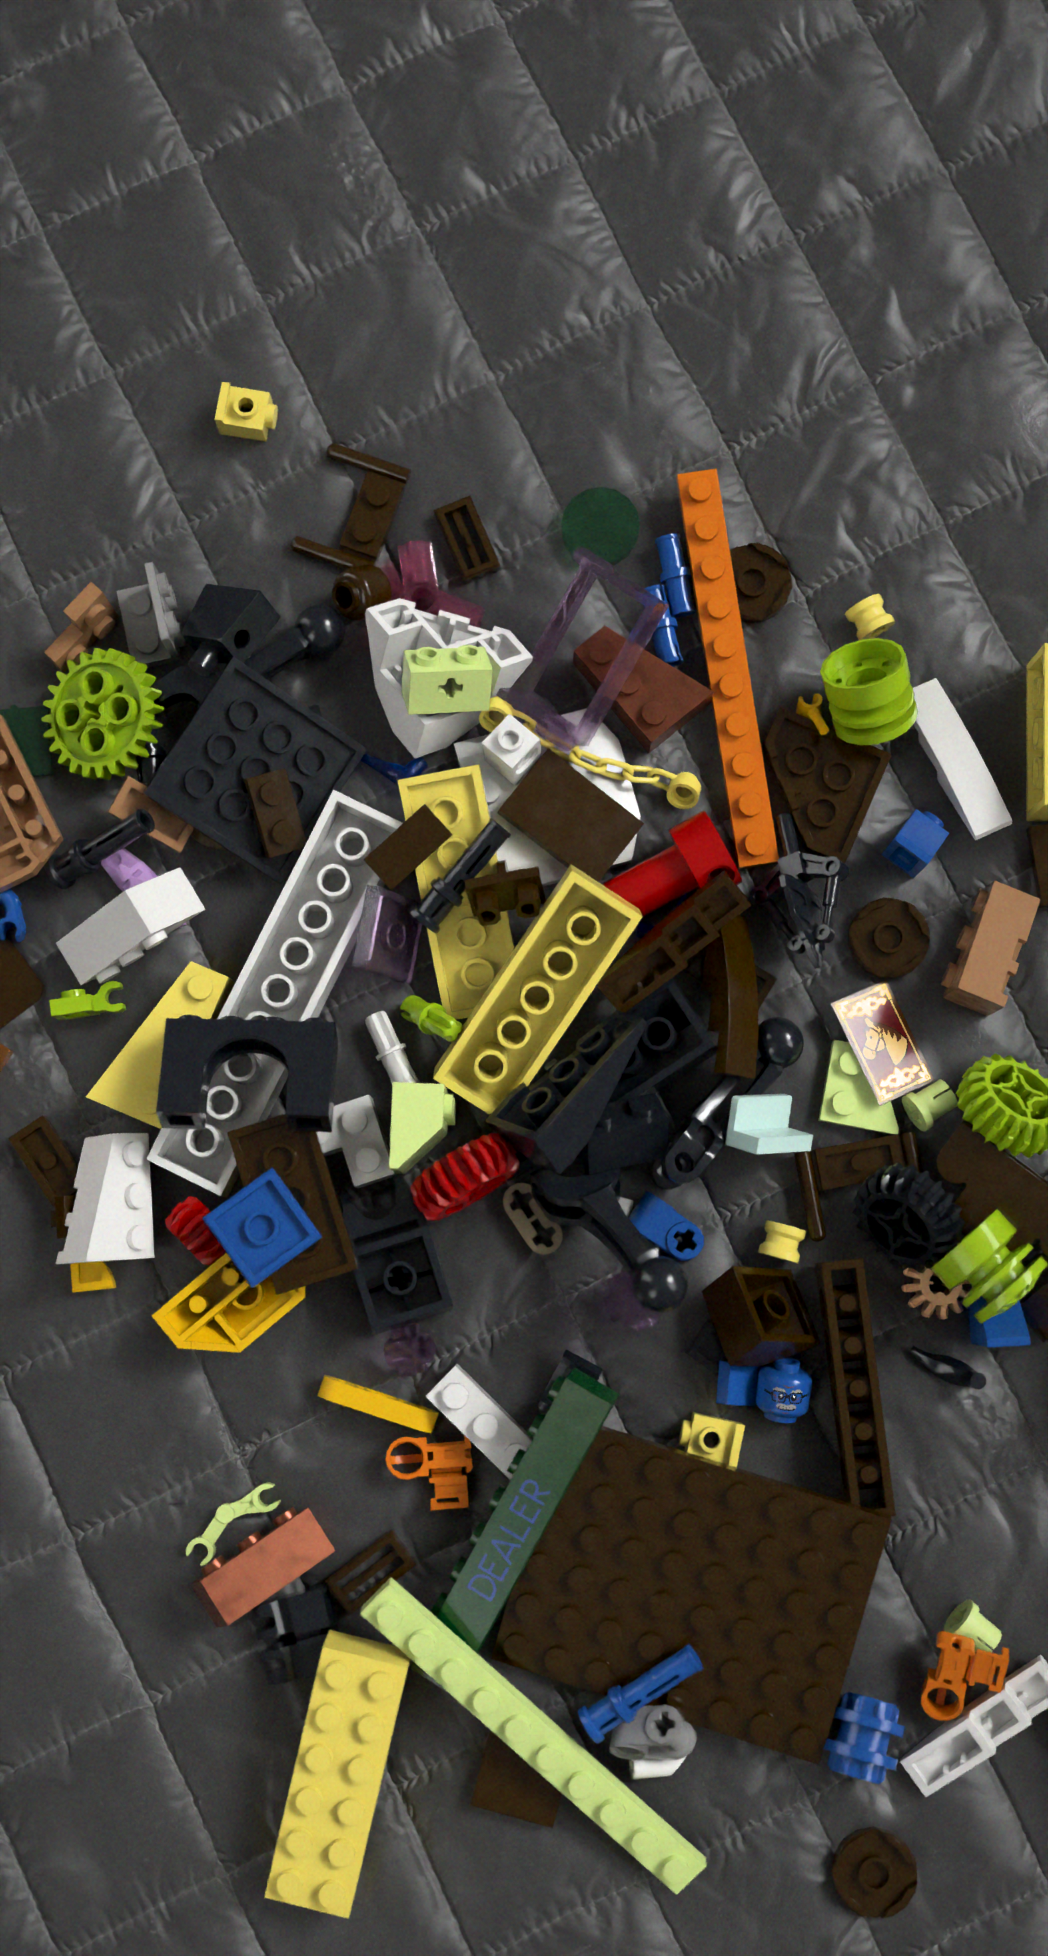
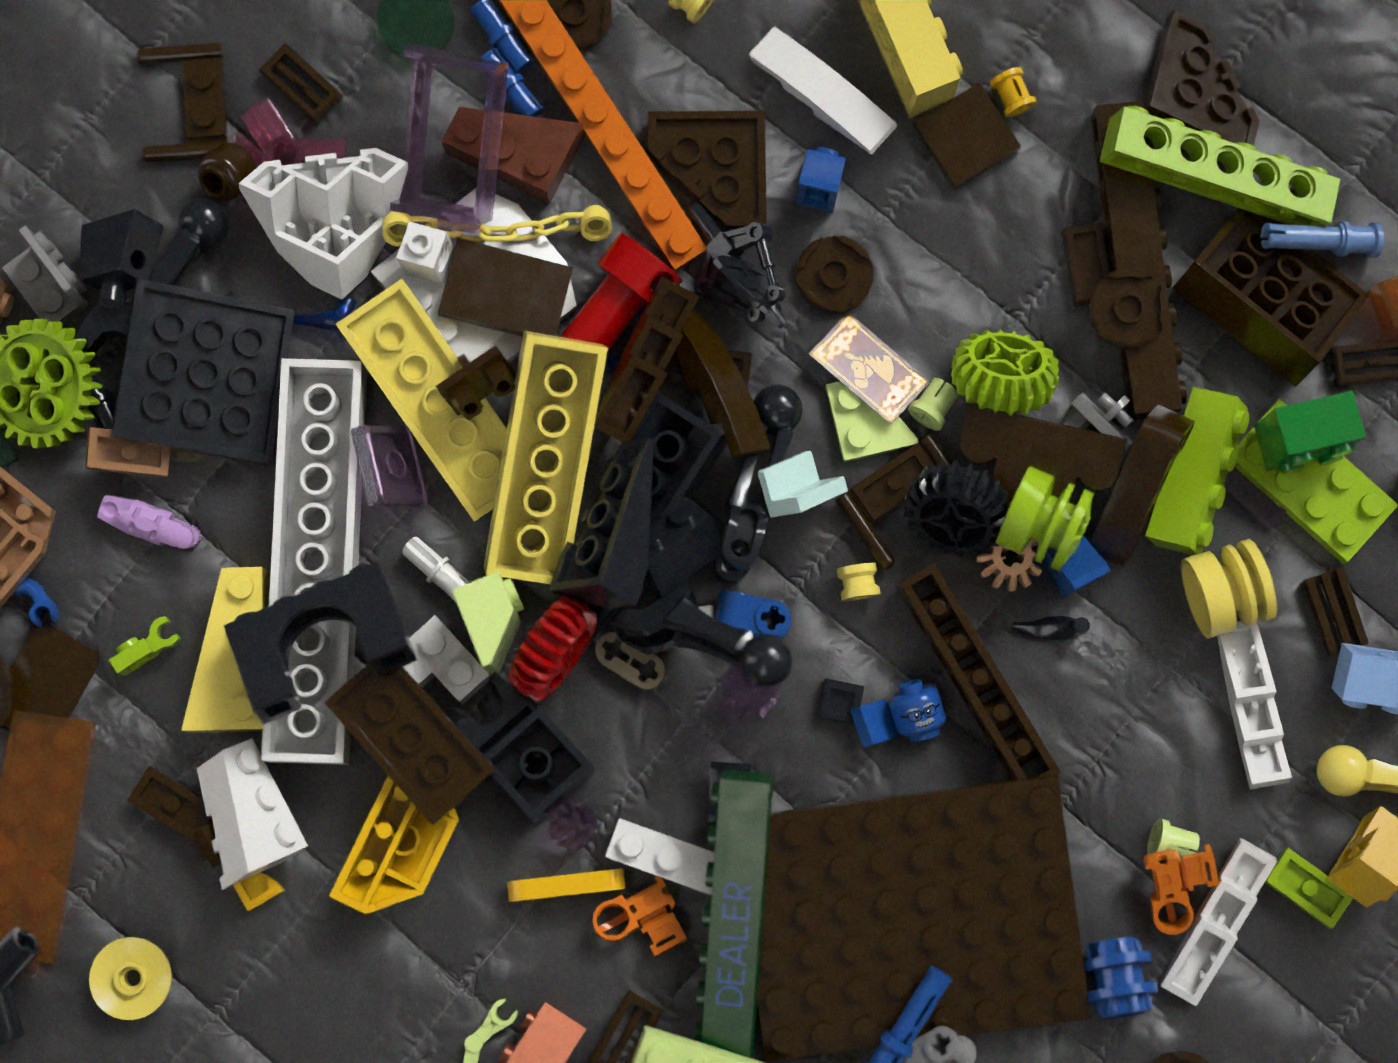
camera: 30 degrees left, 0 degrees up
(86, 855) = (83, 516): black pin -> none
(128, 925) = (151, 560): white wedge -> none
(192, 1231) = (337, 803): red gear -> none
(245, 425) = (53, 66): light yellow brick -> none
(262, 1227) = (393, 771): blue tile -> none
(275, 813) = (238, 402): dark brown plate -> none
(408, 847) = (371, 379): dark brown tile -> none
(430, 1018) = (460, 523): lime axle -> none
(446, 680) = (339, 215): yellowish green brick -> none
(447, 890) = (425, 403): black pin -> none
(729, 1434) = (886, 769): light yellow brick -> none
(759, 1315) = (866, 654): dark brown slope -> none
(813, 712) = (679, 103): yellow hand -> none
(869, 691) = (720, 63): lime wheel -> none
(990, 948) = (926, 243): medium nougat wedge -> none

